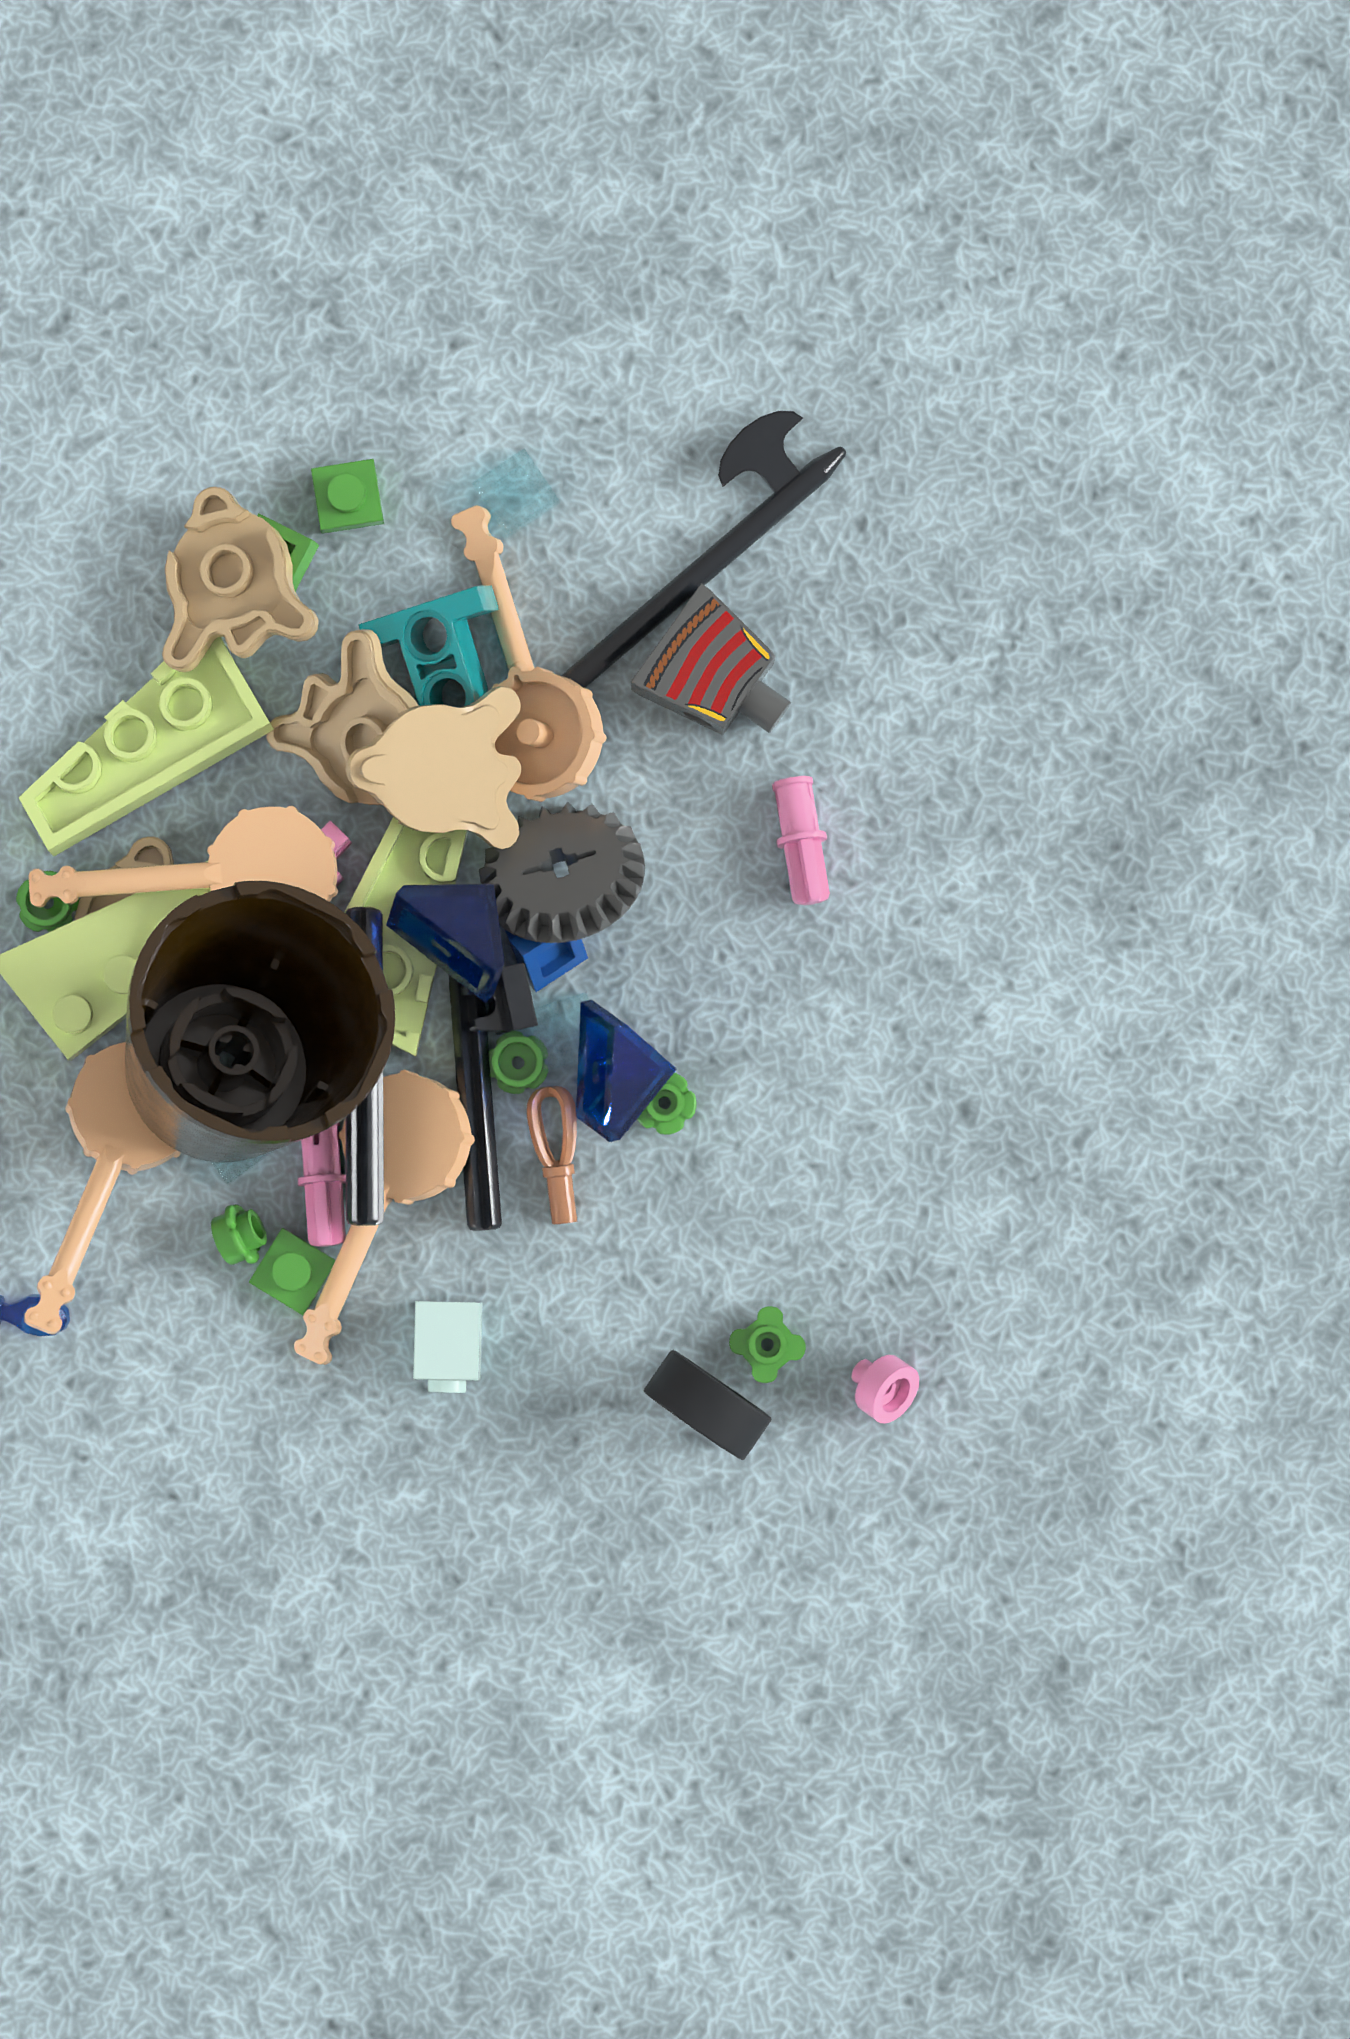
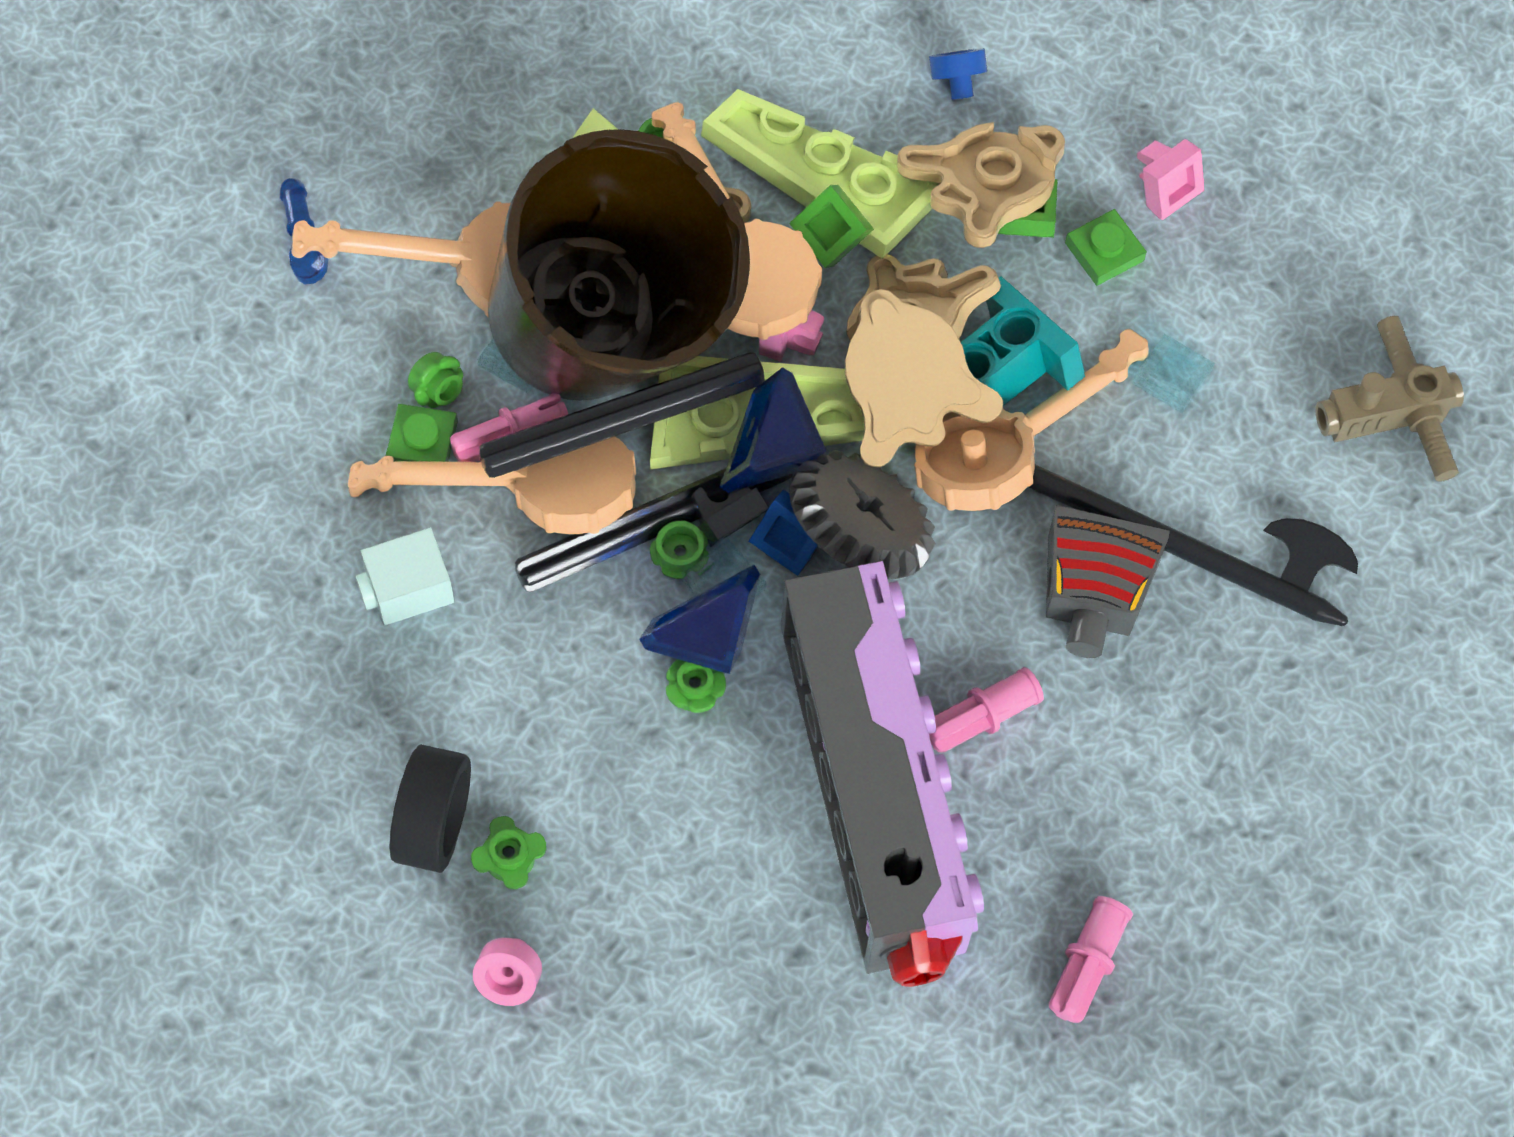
camera: 70 degrees right, 20 degrees down
(81, 555) = (958, 68): none -> blue tile
(231, 774) = (832, 225): none -> bright green plate
(297, 396) = (1171, 176): none -> bright pink tile
(556, 1171) = (600, 617): nougat piece -> none
(645, 272) = (1410, 397): none -> dark tan piece
(840, 968) = (880, 772): none -> dark grey piece
(1080, 847) = (1089, 959): none -> bright pink axle

